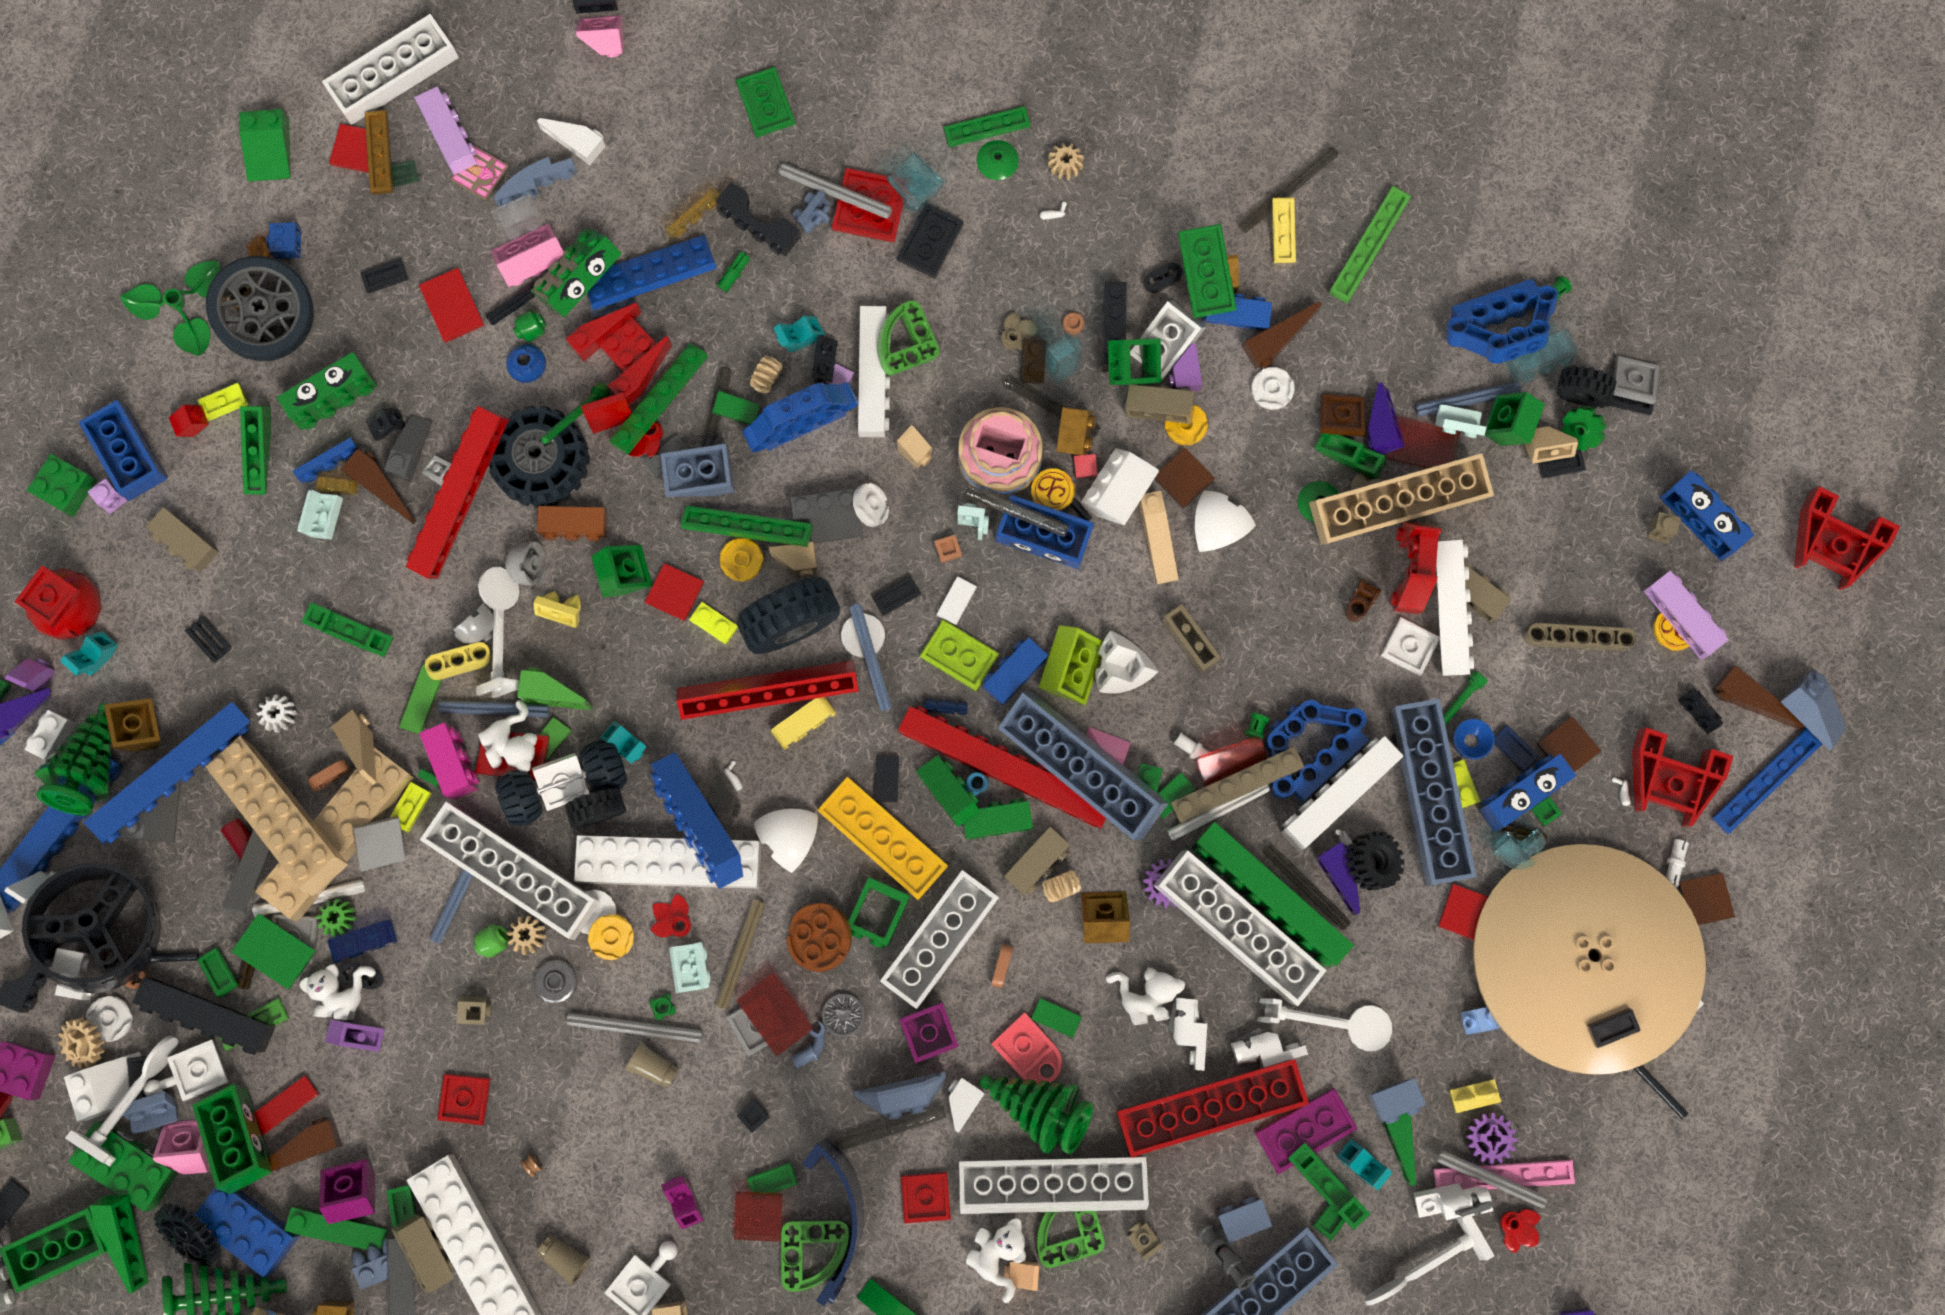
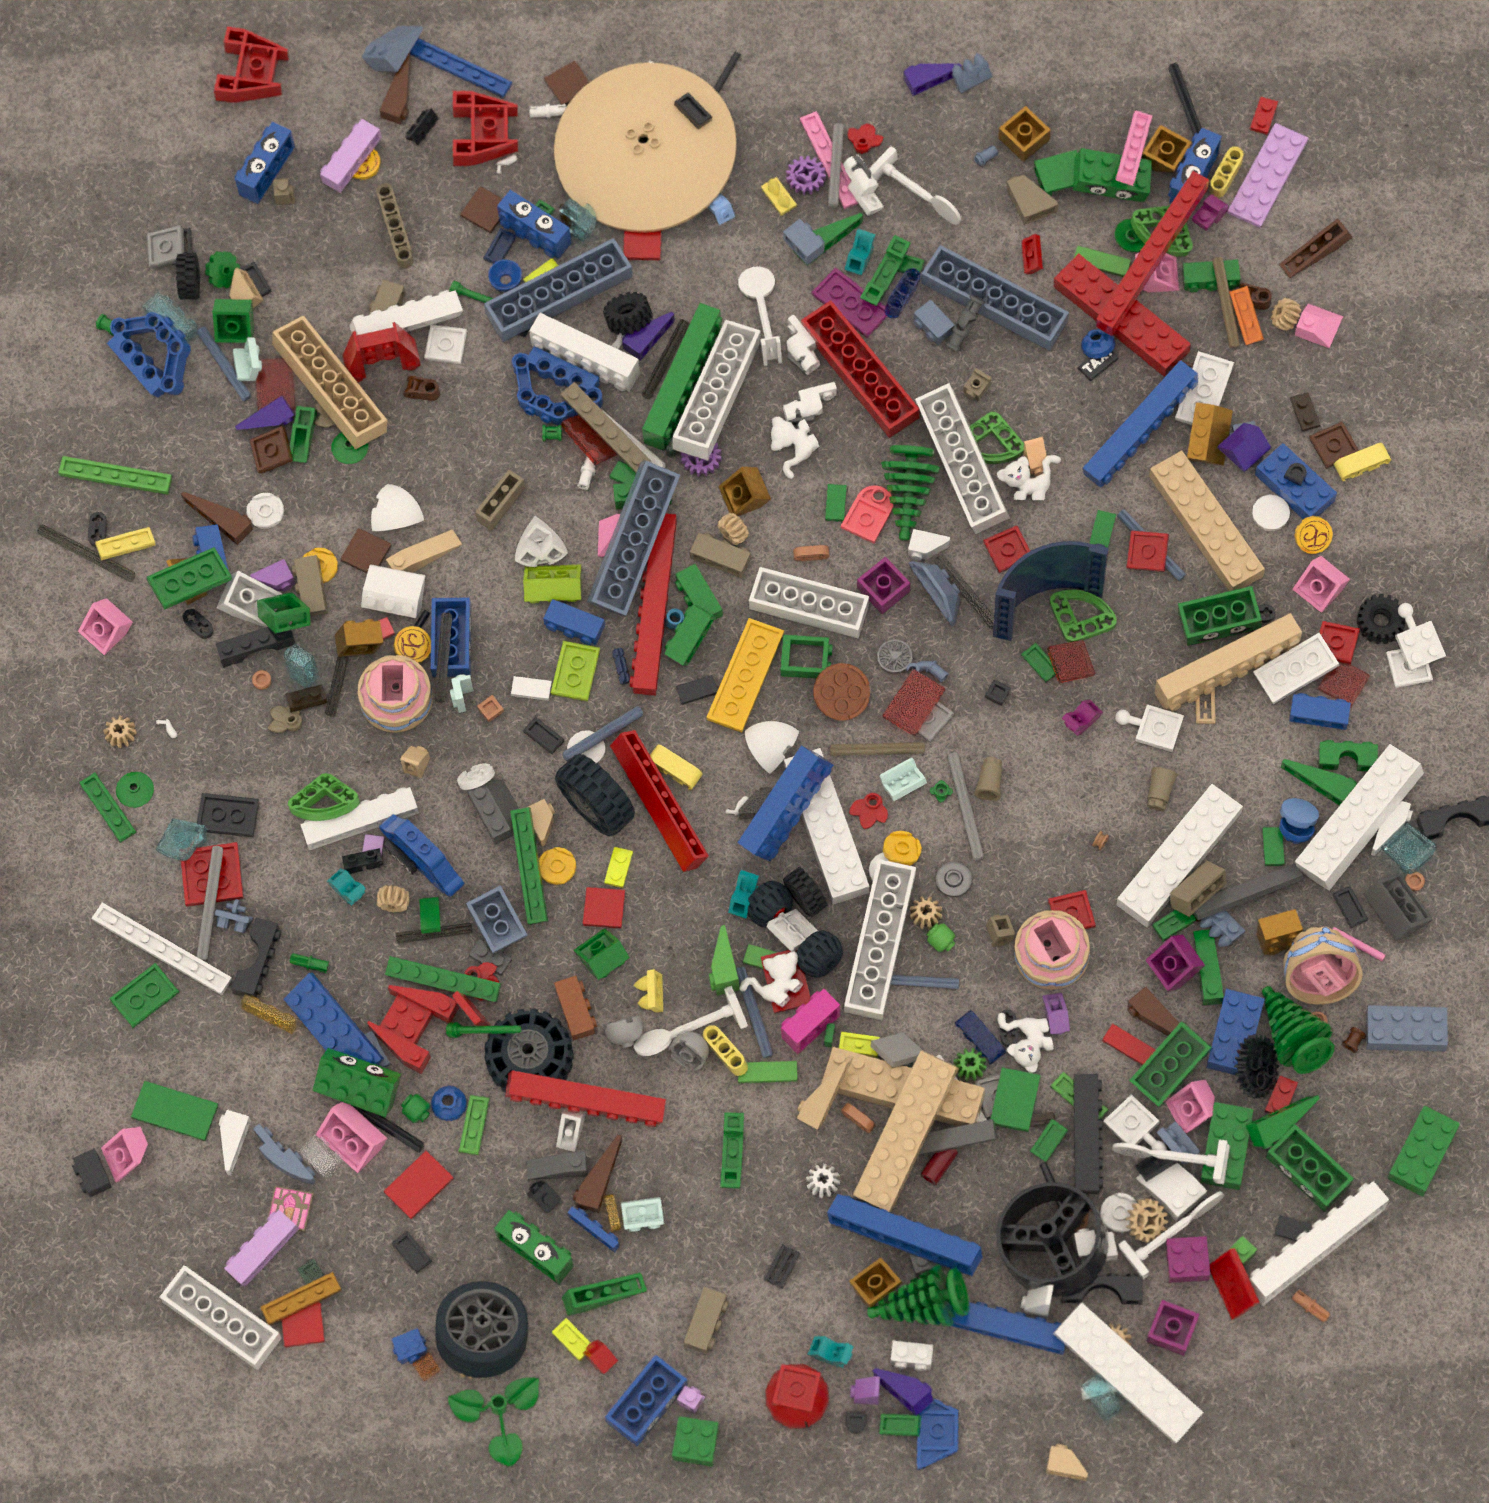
camera: 105 degrees left, 10 degrees down
(14, 654) = (855, 1422): none -> black tile
(62, 1108) = (1136, 1257): none -> white piece
(158, 1252) = (1281, 1094): none -> red plate
(265, 144) = (327, 1400): green slope -> none
(423, 1037) = (1068, 943): none -> piece
(491, 380) = (474, 1125): none -> bright green tile
(629, 94) = (174, 1110): none -> green tile
(807, 132) = (162, 949): none -> white plate
(1194, 182) = (104, 625): none -> bright pink slope
(1299, 1205) = (905, 286): none -> clear blue beam
(1315, 204) = (102, 529): none -> black beam

